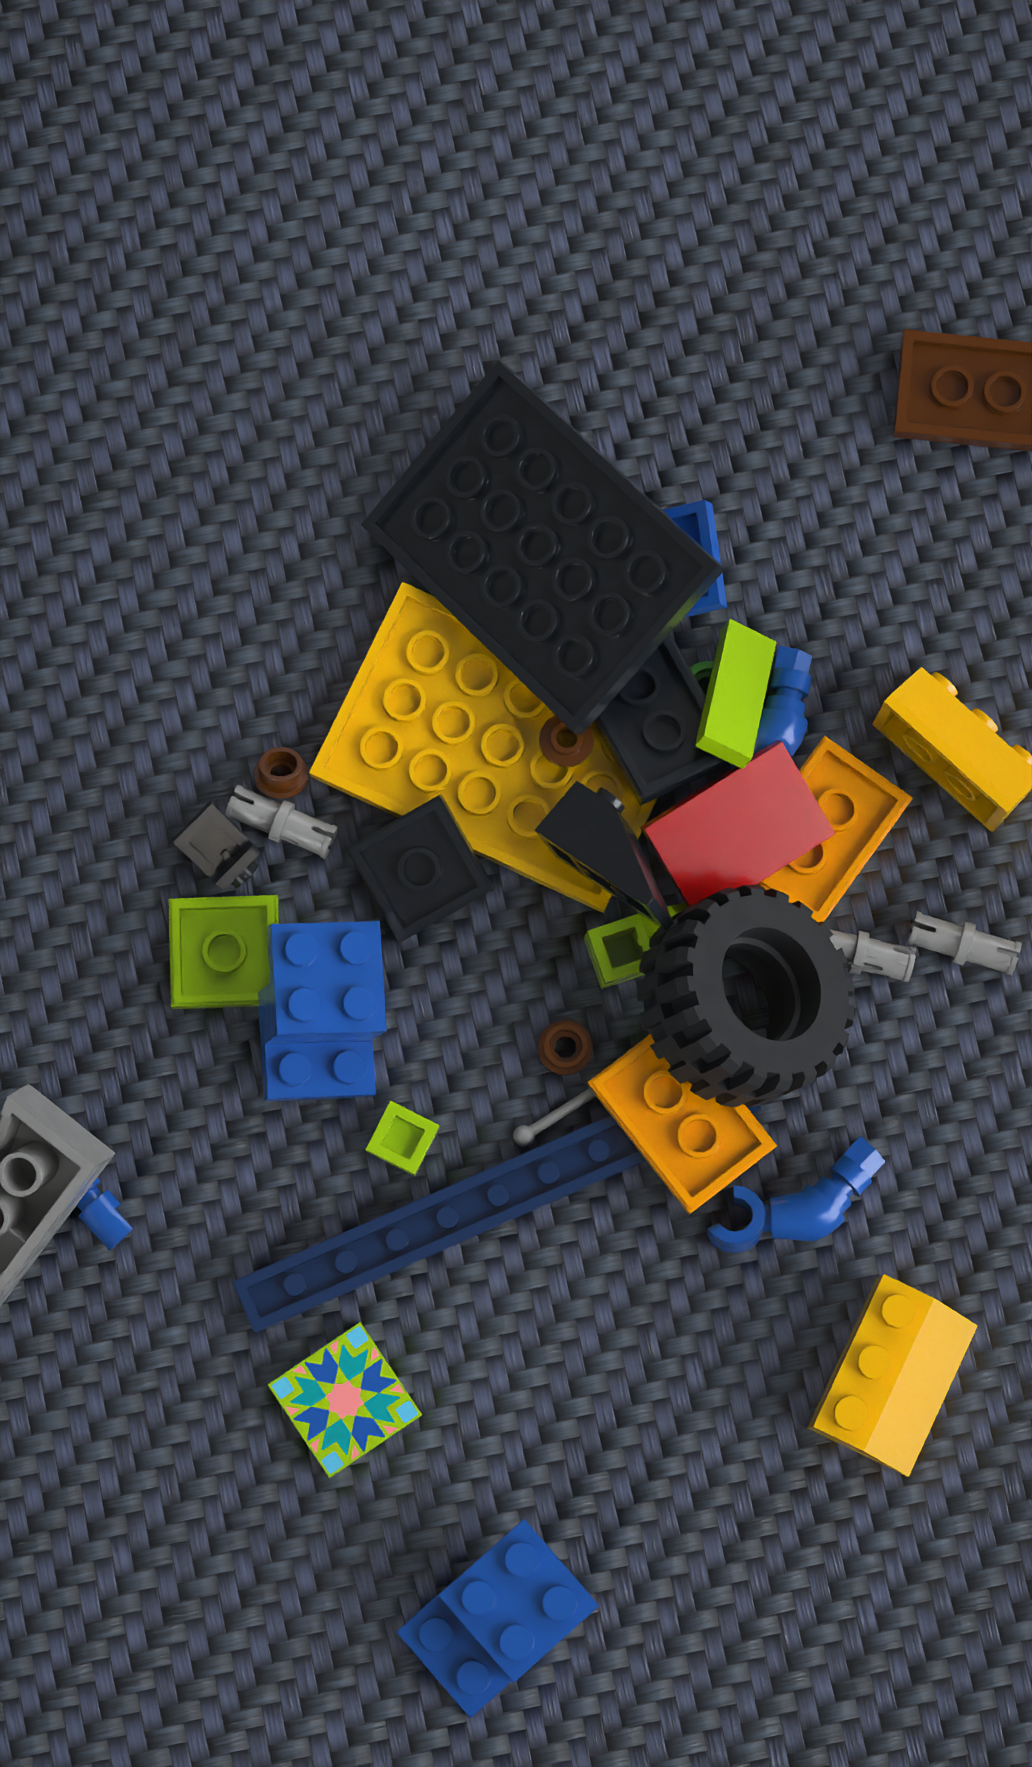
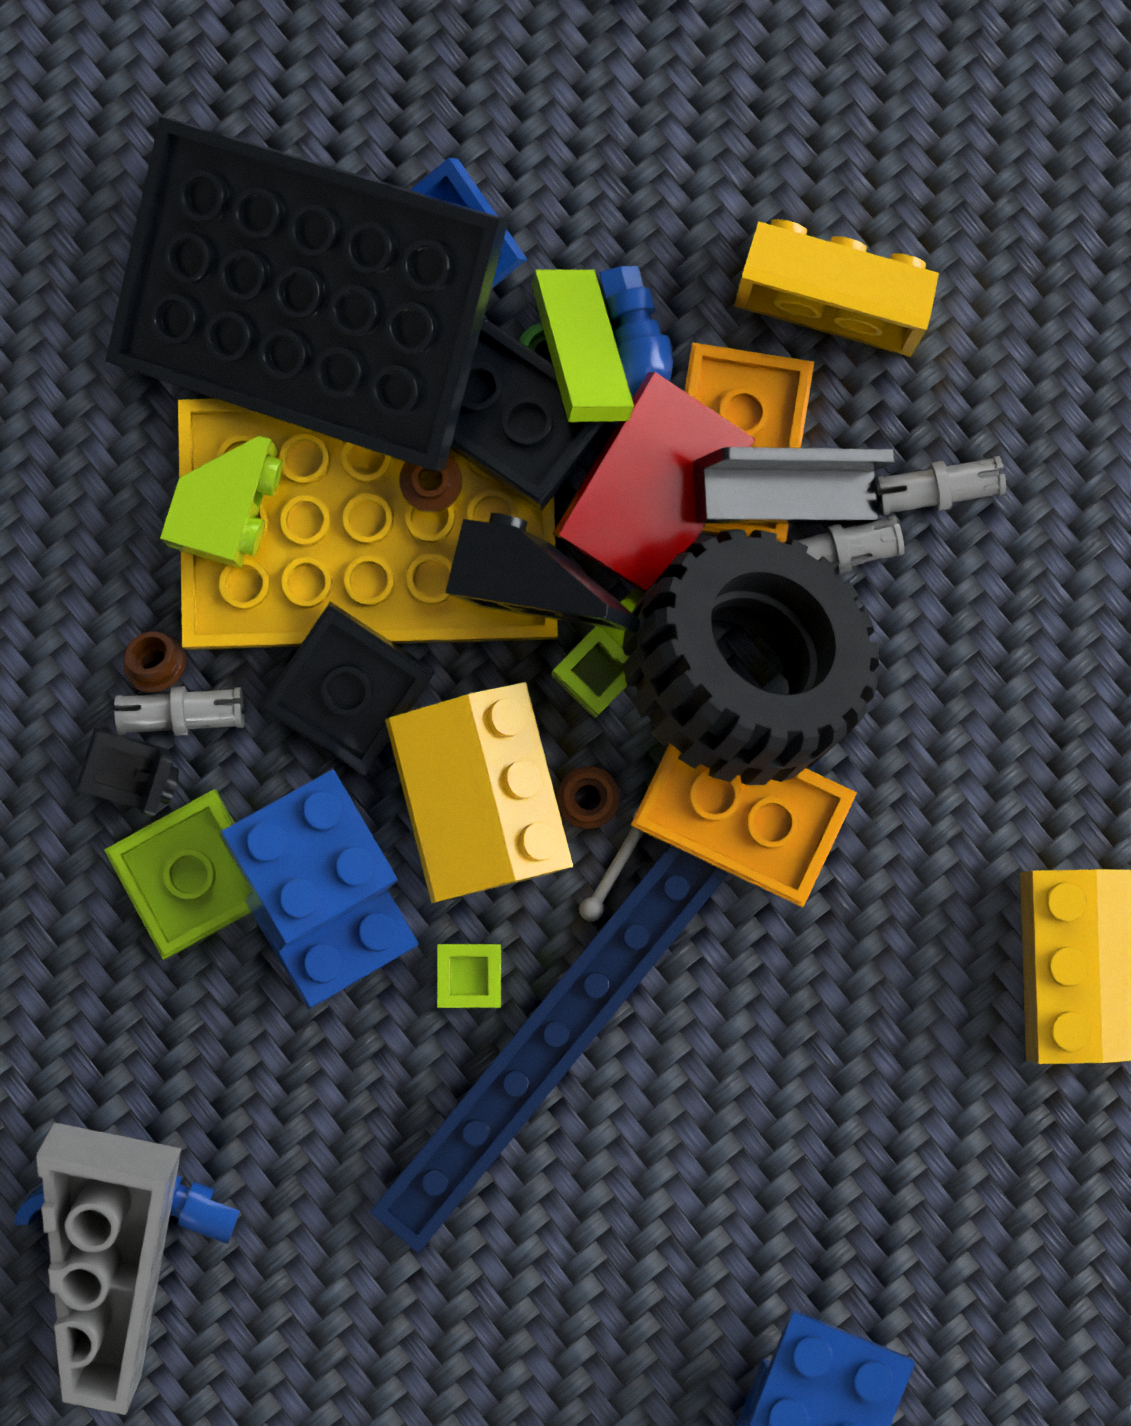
camera: 20 degrees left, 5 degrees up
(344, 1400) = (545, 1272): tile -> none
(395, 676) = (220, 503): none -> lime slope
(482, 998) = (478, 792): none -> yellow slope
(803, 1214) = (921, 842): blue piece -> none
(843, 881) = (788, 485): none -> panel

